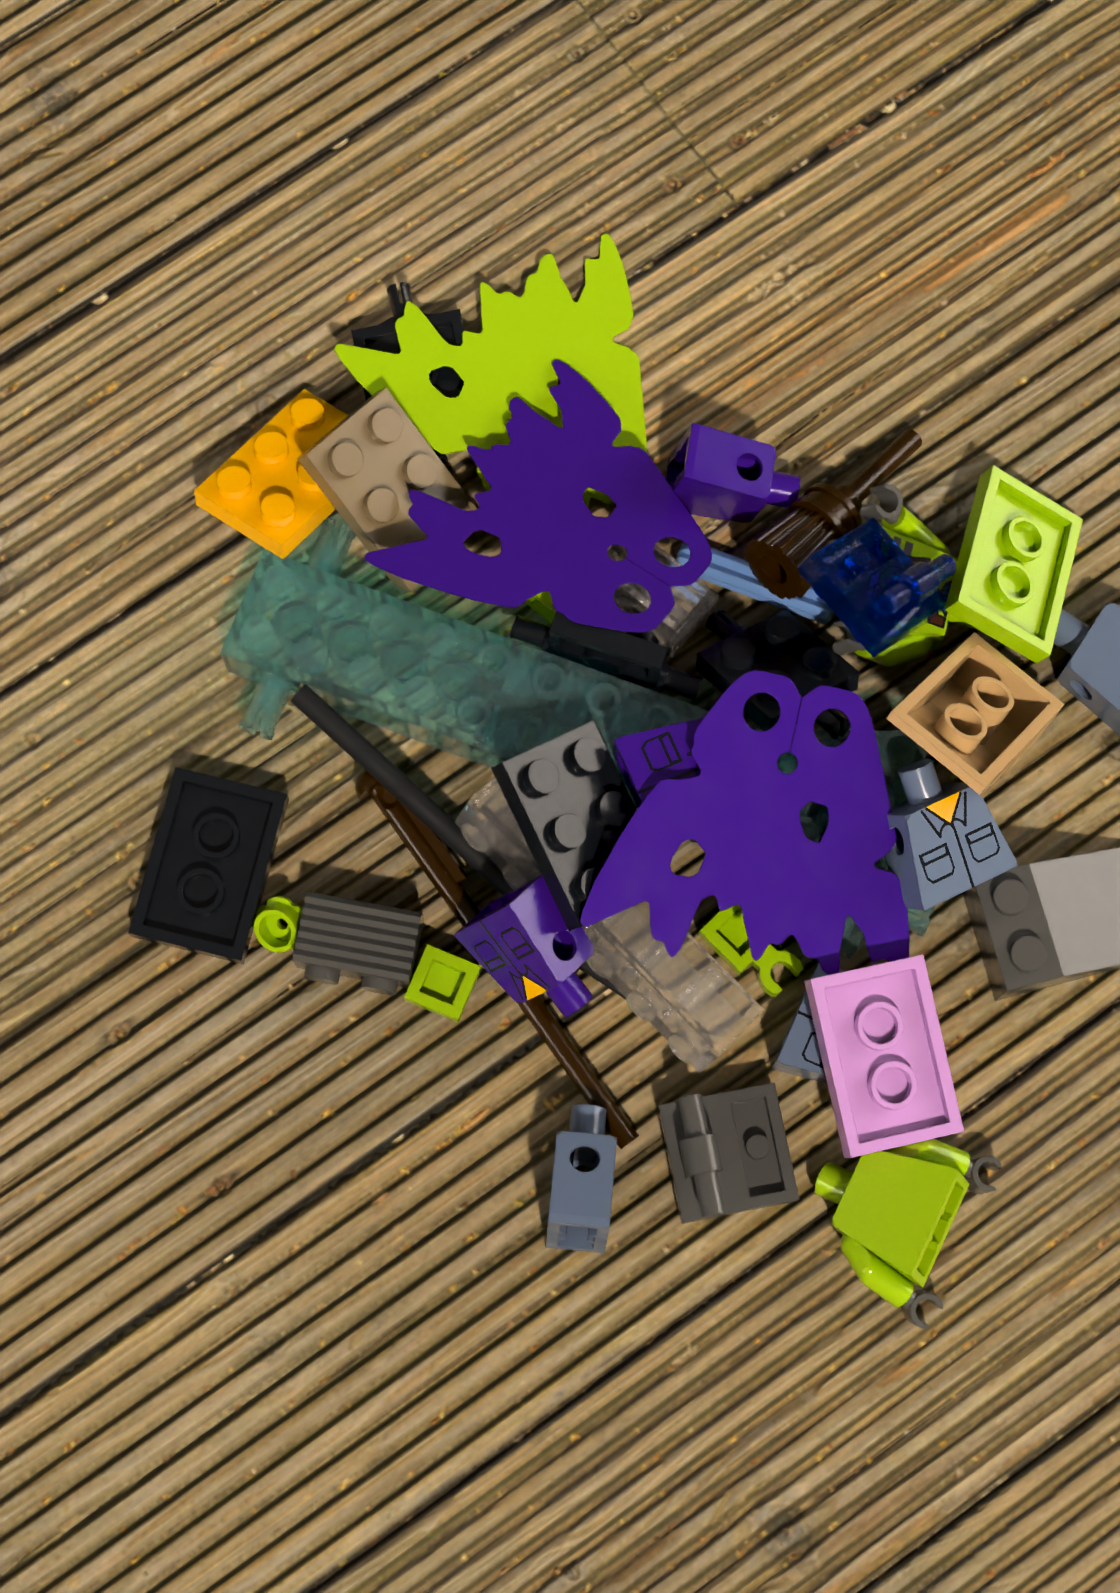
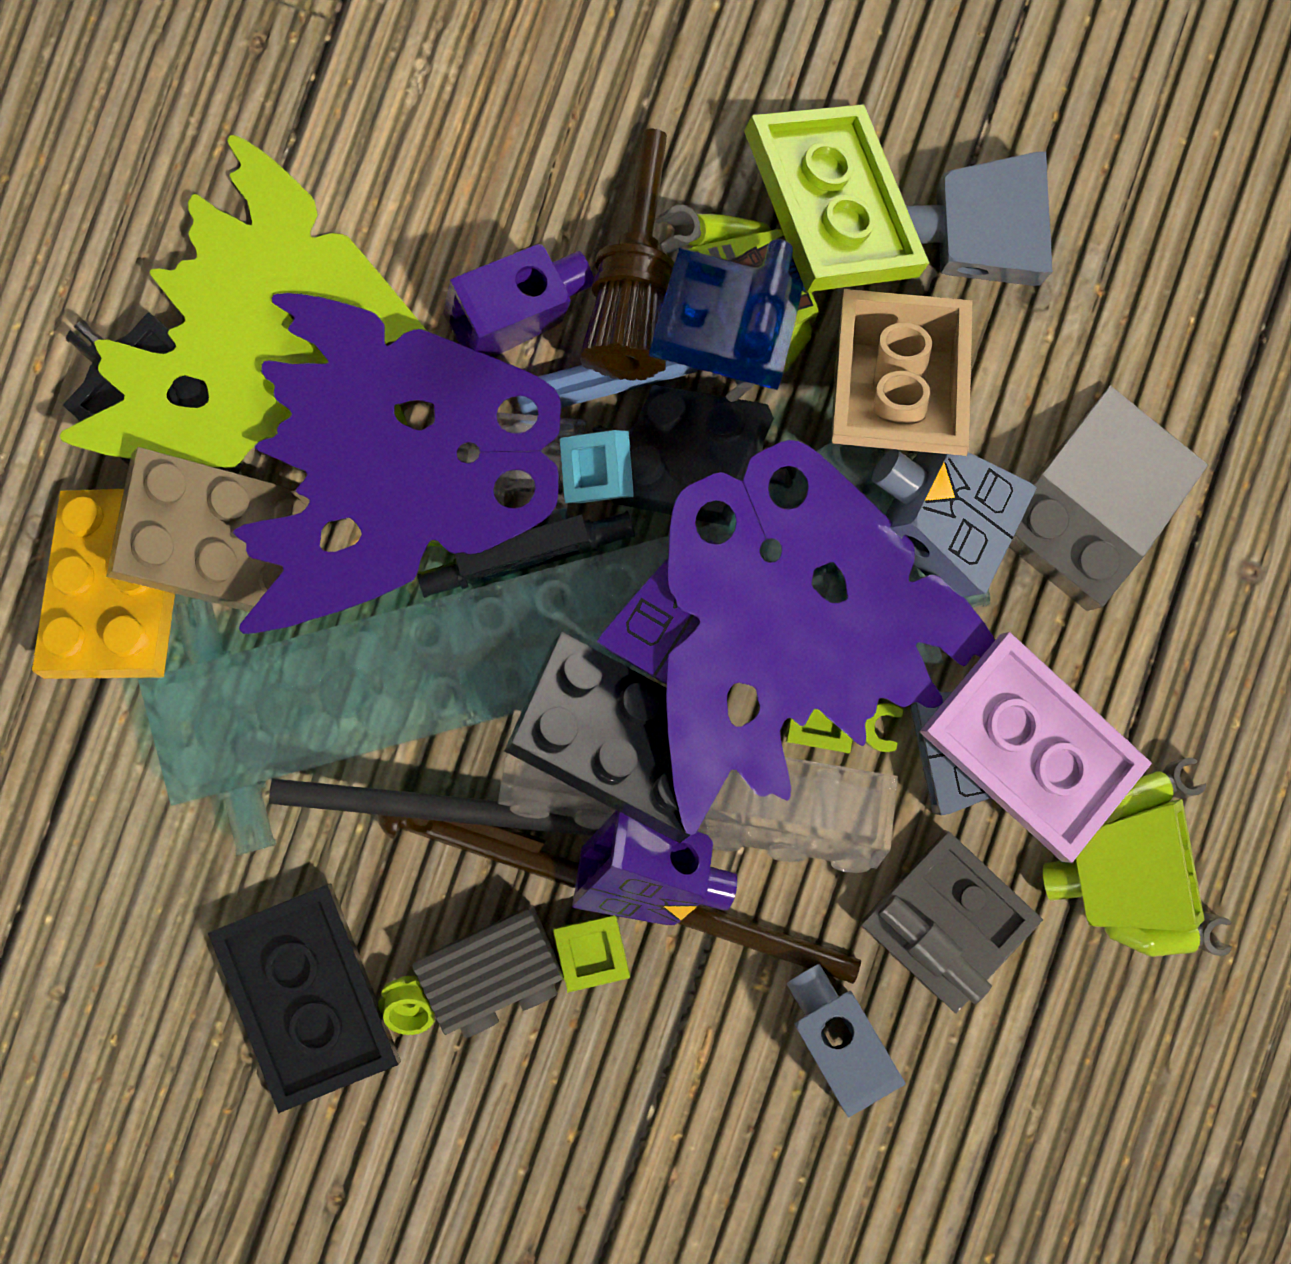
camera: 30 degrees left, 10 degrees up
(702, 627) = (596, 466): none -> medium azure plate

